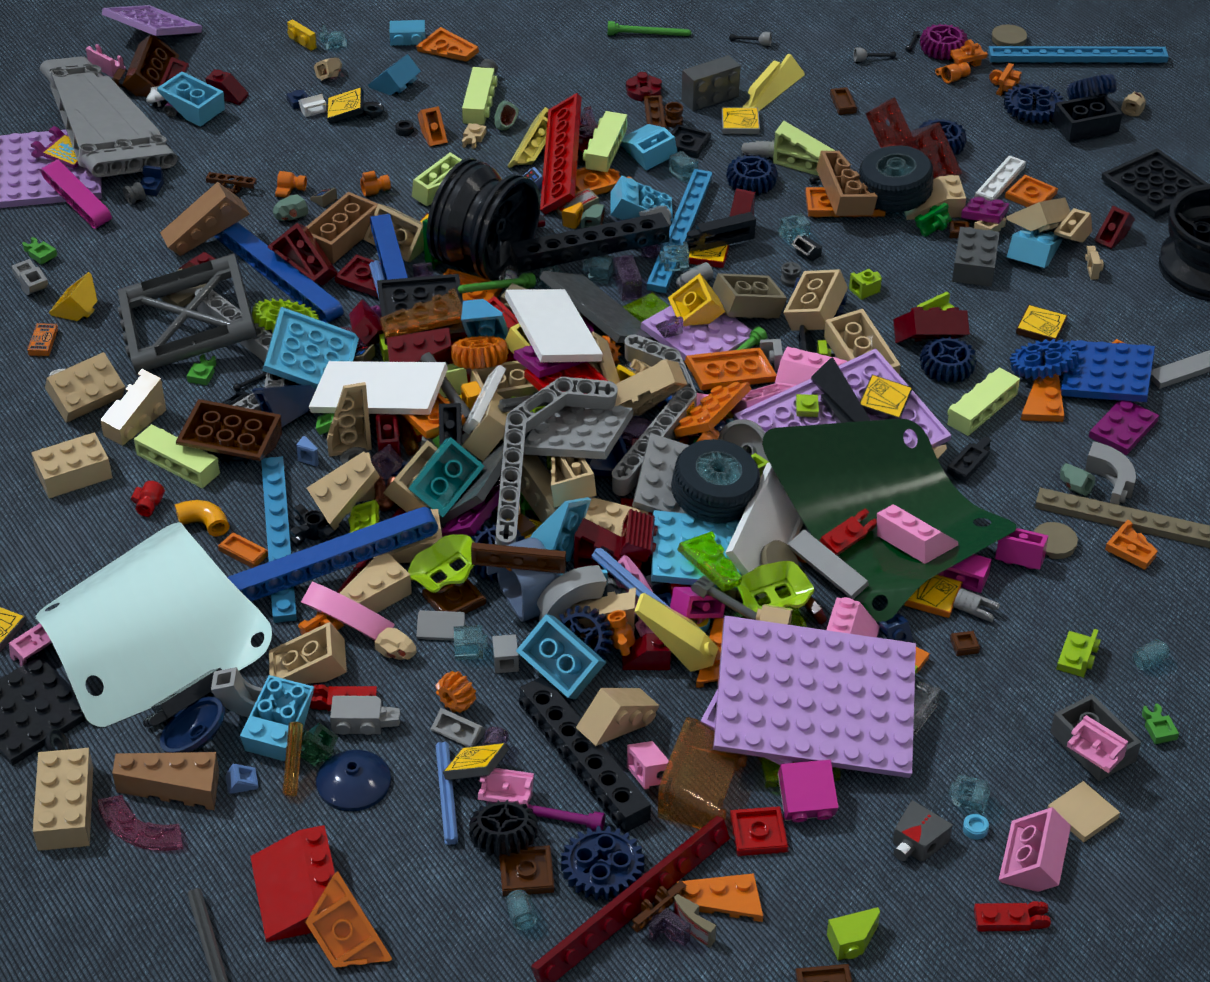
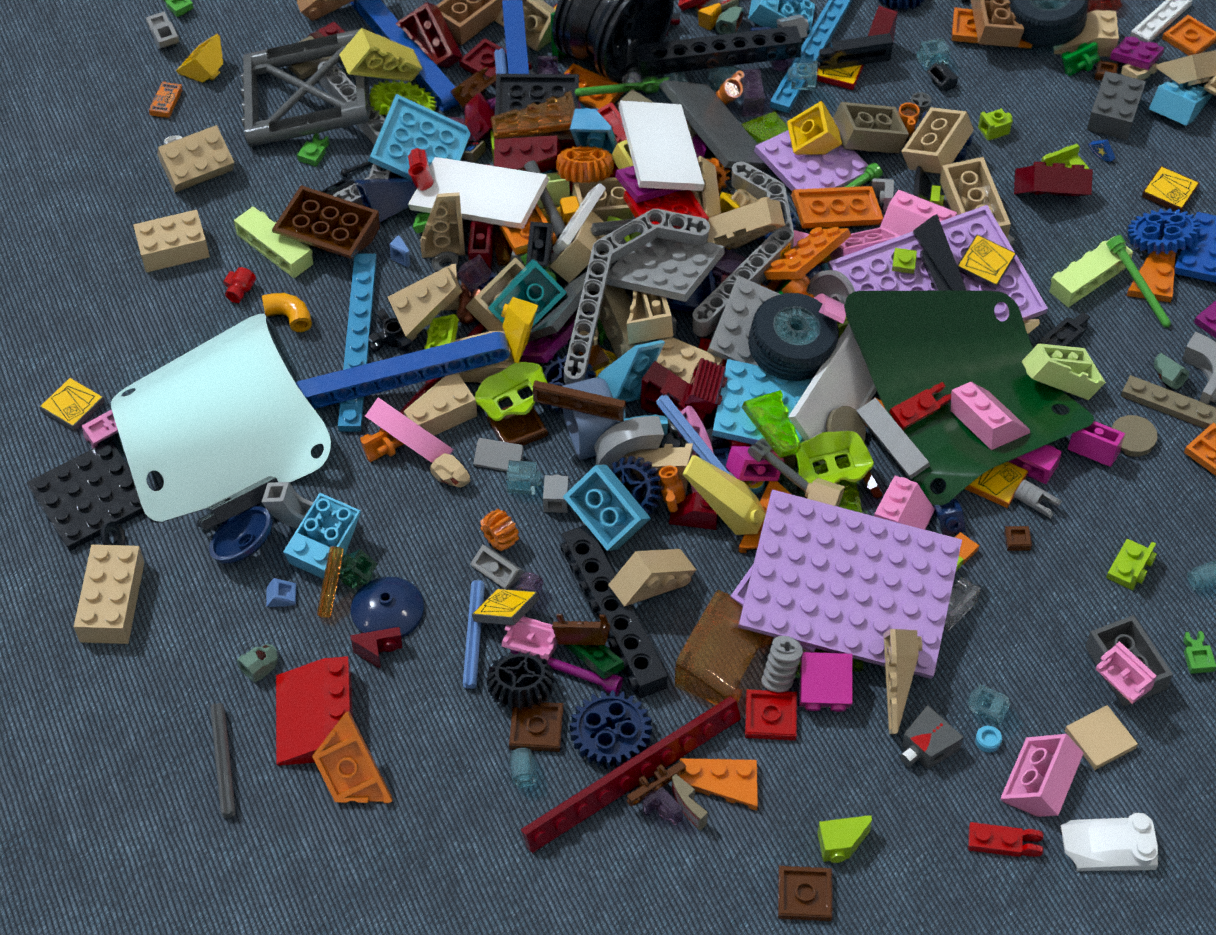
camera: 10 degrees right, 10 degrees up
(135, 410) = (241, 188): tan wedge -> none
(135, 832) = (172, 634): clear pink tile -> none
(173, 776) = (212, 583): medium nougat wedge -> none
(229, 845) = (258, 662): none -> sand green rock
(243, 550) = (321, 350): orange tile -> none
(258, 276) = (379, 58): none -> light yellow wedge
(310, 657) = (365, 475): tan slope -> none
(316, 373) = (419, 169): none -> red piece
(322, 692) = (392, 521): red hinge -> none
(344, 813) = (371, 643): none -> dark red slope
(350, 298) = (470, 87): none -> reddish brown hinge
(361, 715) = (404, 542): light grey hinge -> none
(441, 499) = (518, 324): none -> yellow slope
(527, 278) = (648, 84): none -> bright green piece
(557, 774) = (581, 631): none -> reddish brown hinge
(569, 792) = (598, 658): none -> dark green plate
(607, 275) = (731, 88): none -> orange piece
(645, 762) = (671, 629): bright pink hinge -> none
(671, 327) = (783, 156): clear purple slope -> none
(704, 269) = (826, 94): light grey hinge -> none
(750, 449) = (831, 308): none -> bright pink slope
(762, 779) = (782, 664): none -> light grey piece
(784, 281) = (909, 114): none -> orange piece
(878, 757) = (901, 658): none -> tan wedge
(948, 359) = (1063, 220): dark blue gear -> none
(971, 296) = (1102, 150): none -> blue tile
(979, 486) = (1064, 369): none -> yellowish green wedge
(1005, 374) = (1117, 245): none -> bright green piece
(1116, 906) = (1111, 843): none -> white slope

